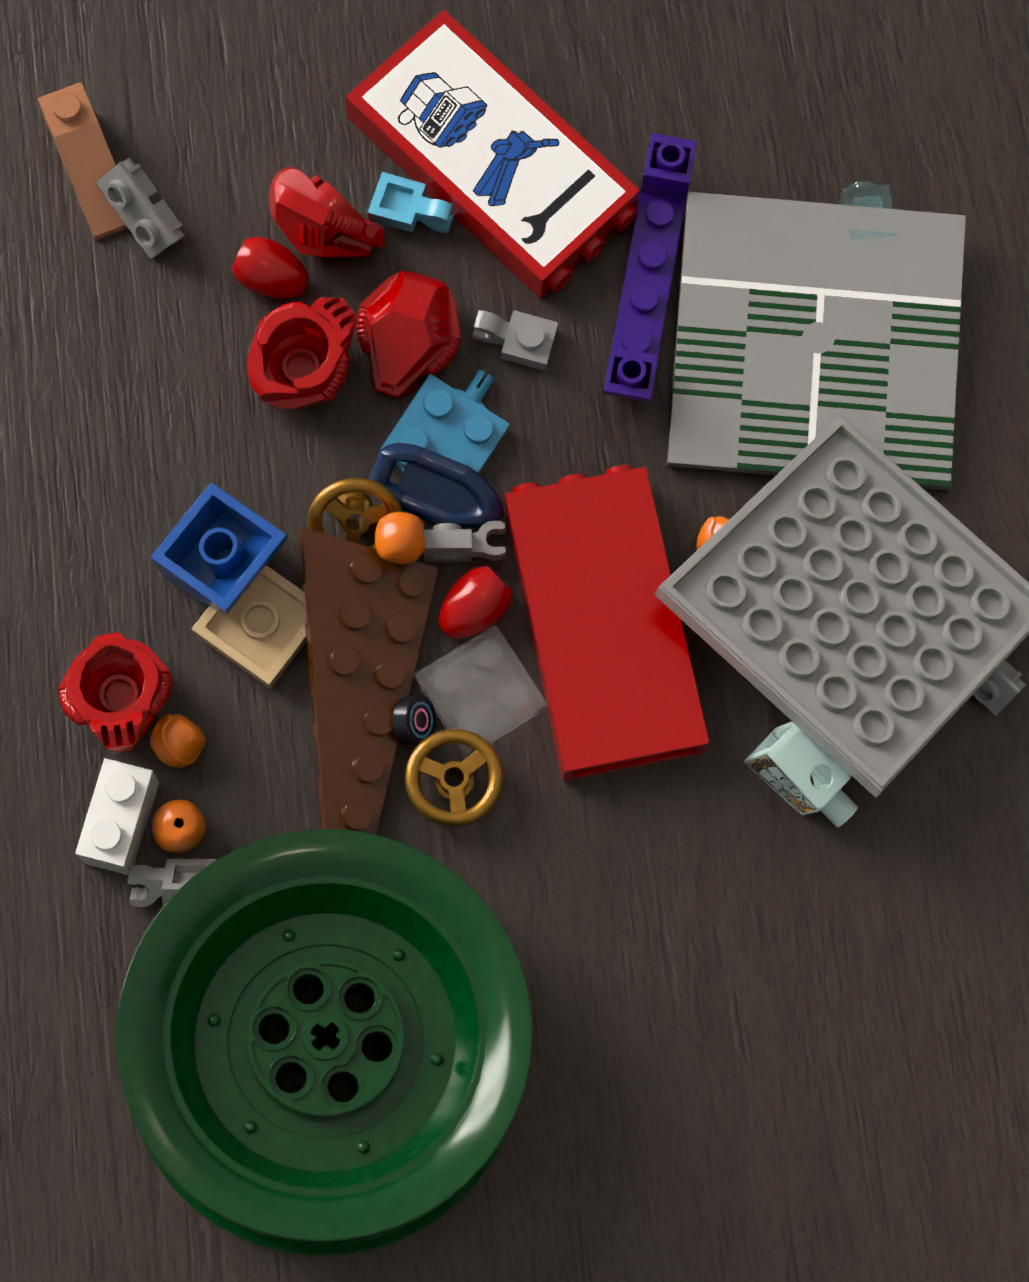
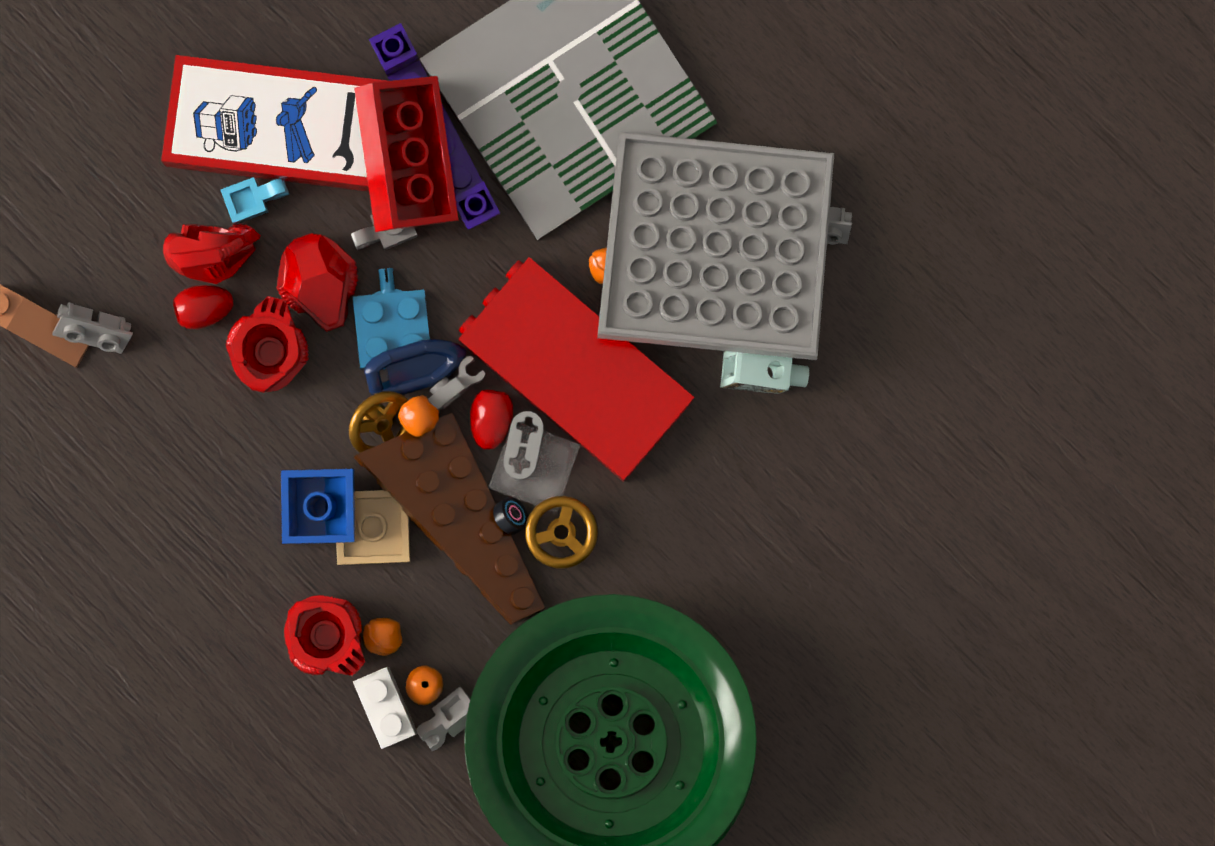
camera: 30 degrees left, 10 degrees up
(493, 663) = (514, 445): none -> light grey beam
(600, 265) = (406, 153): none -> red brick

